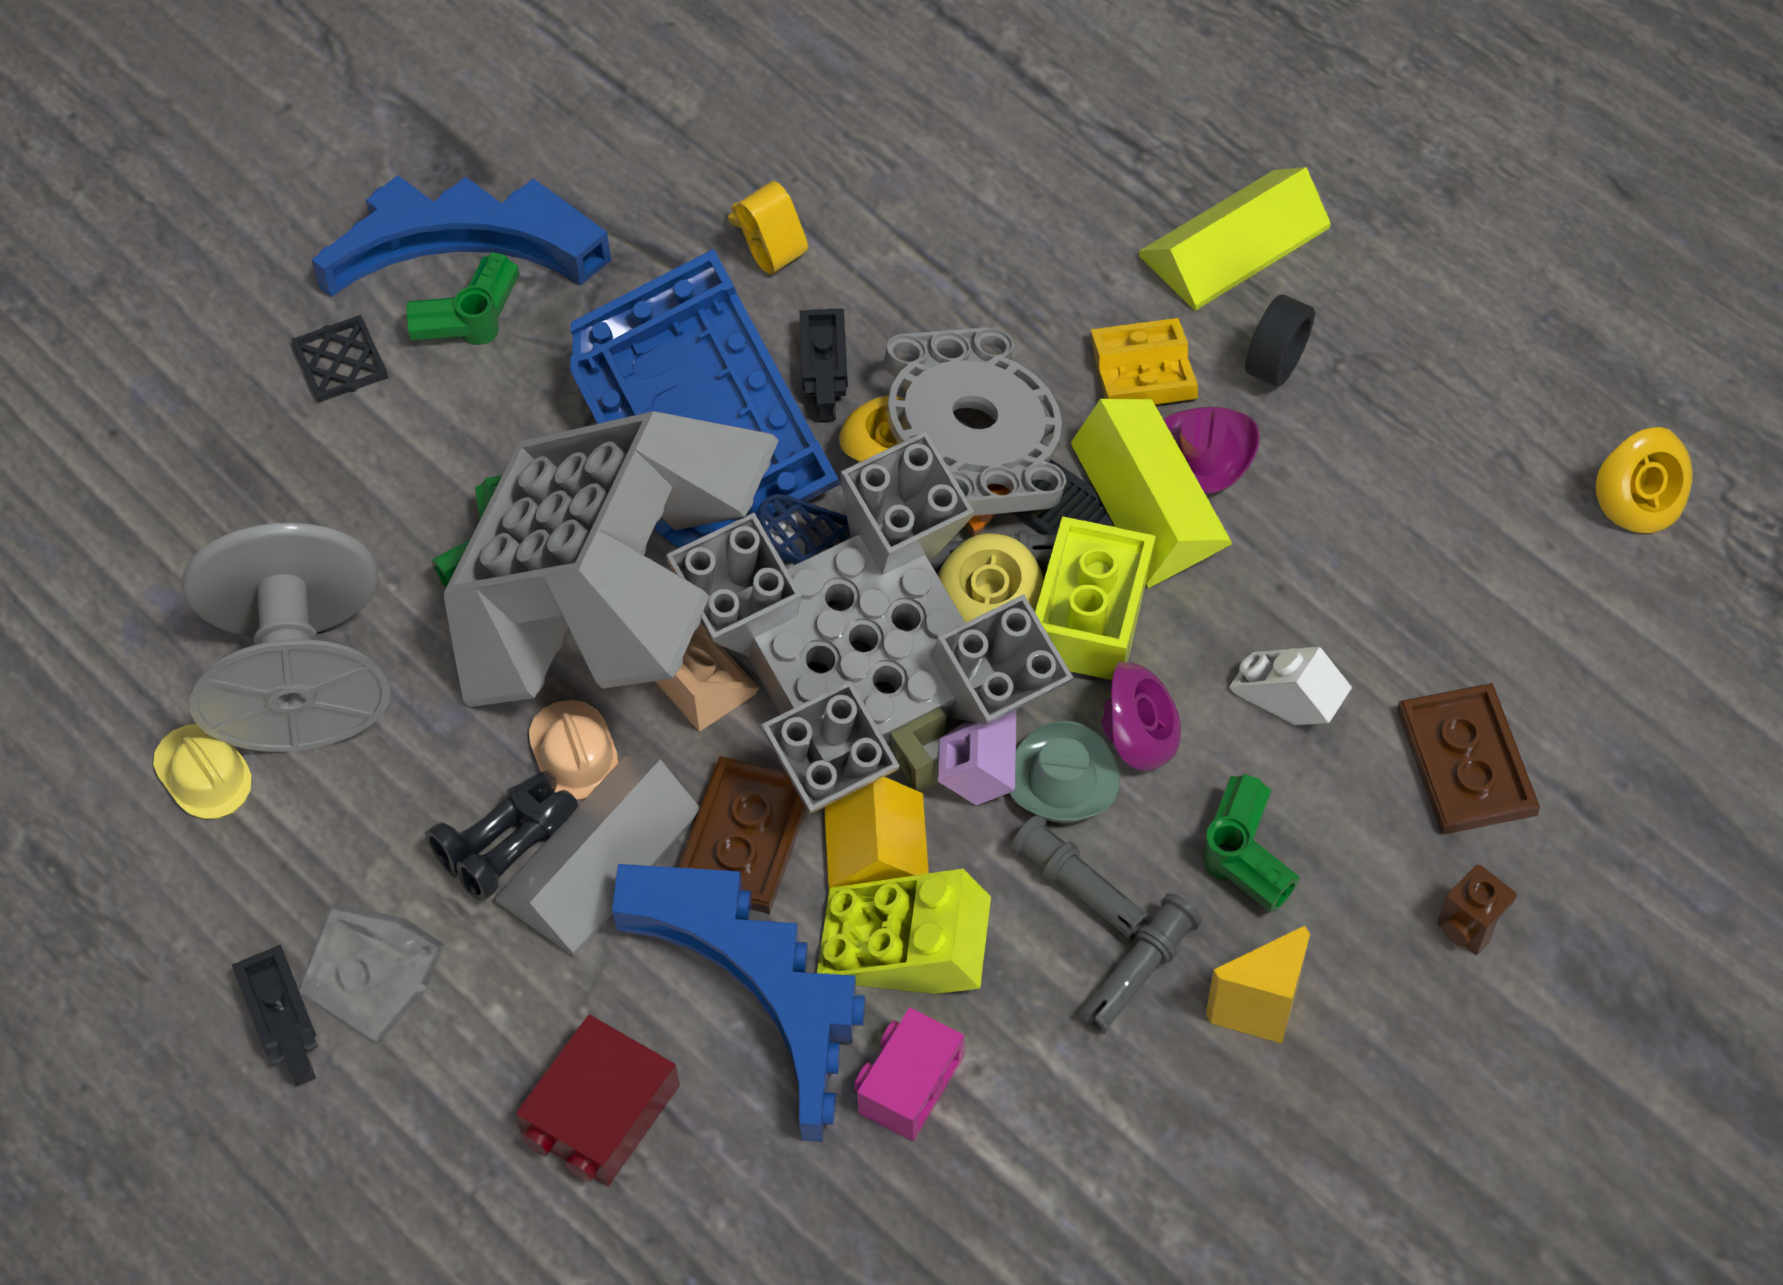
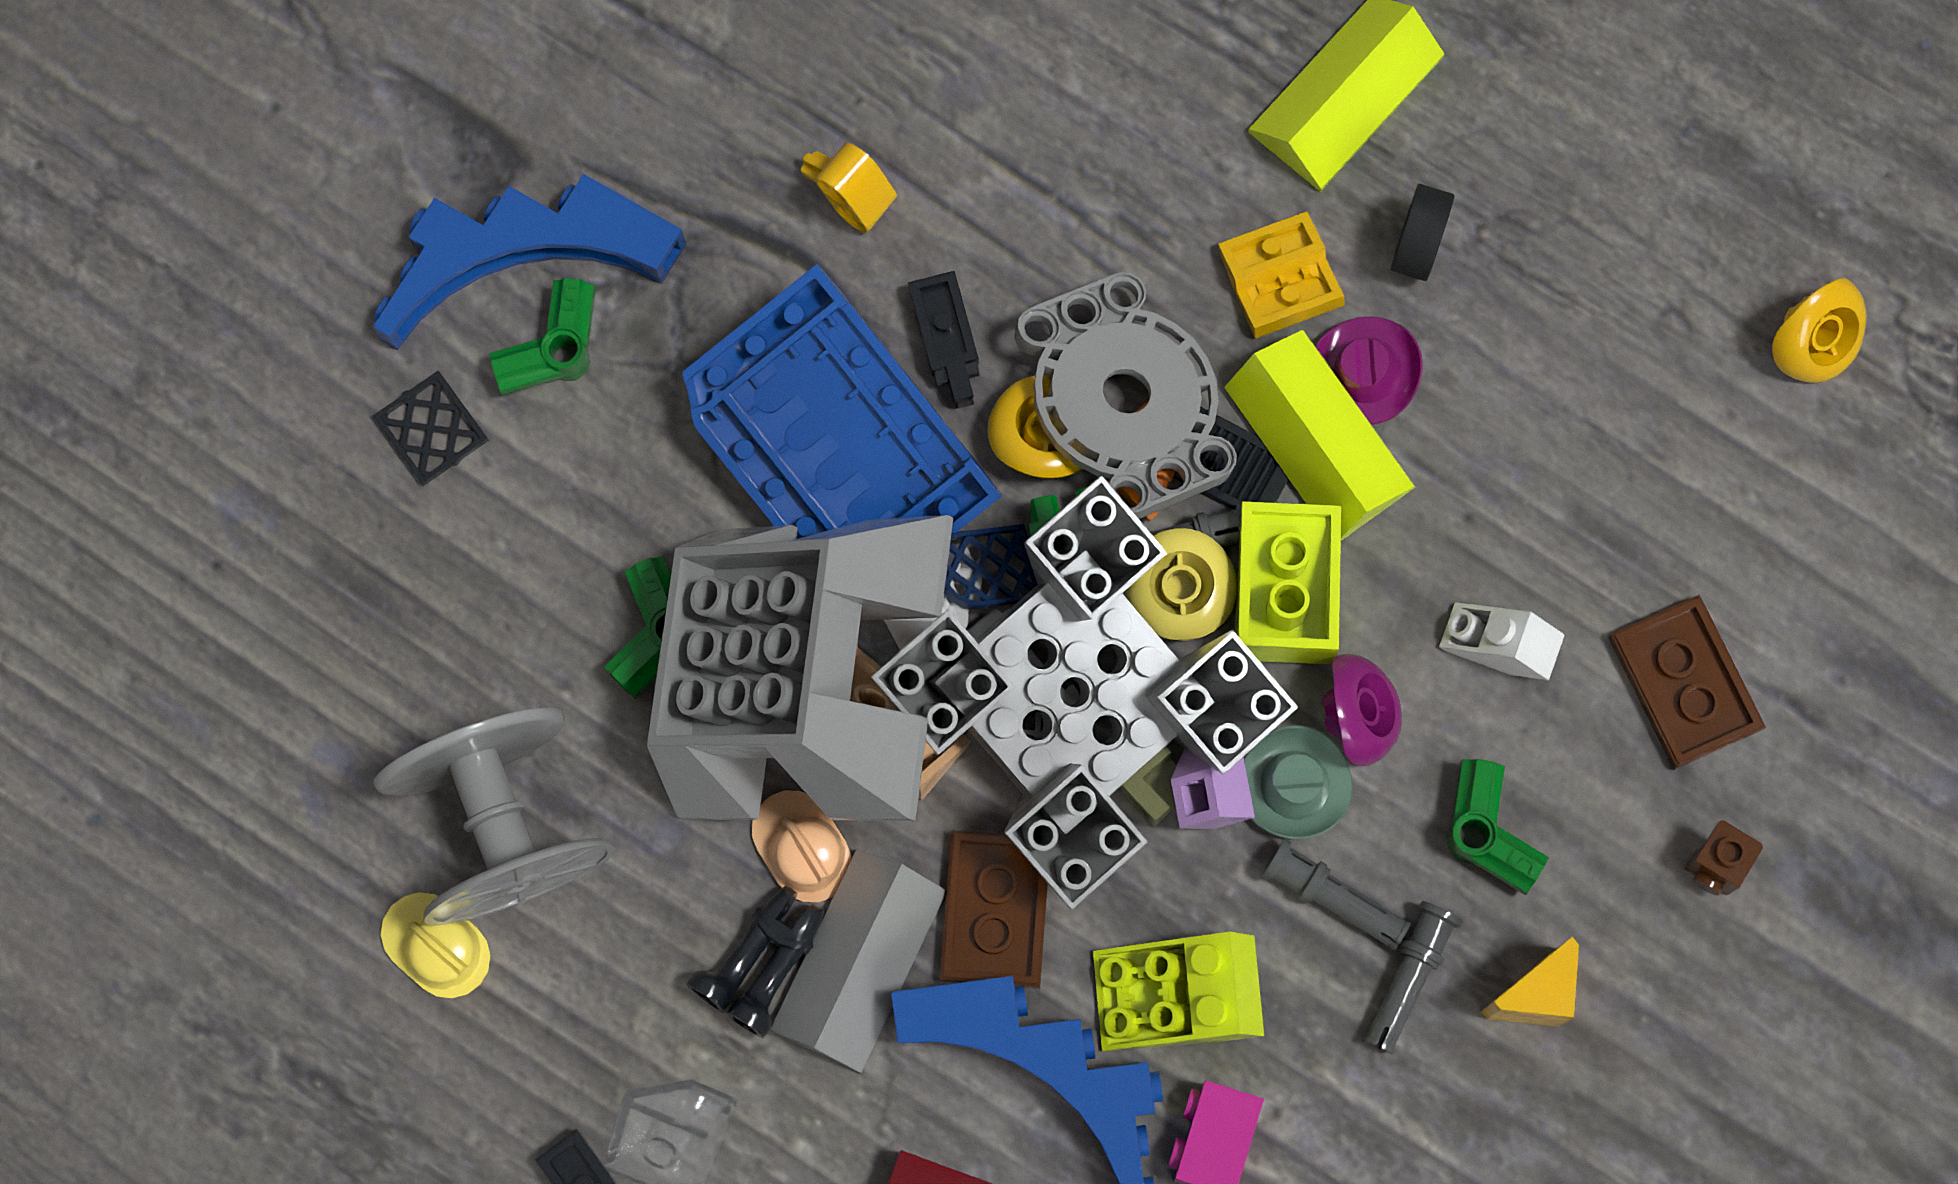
camera: 10 degrees left, 20 degrees up
(876, 834) = (1136, 899): yellow slope -> none

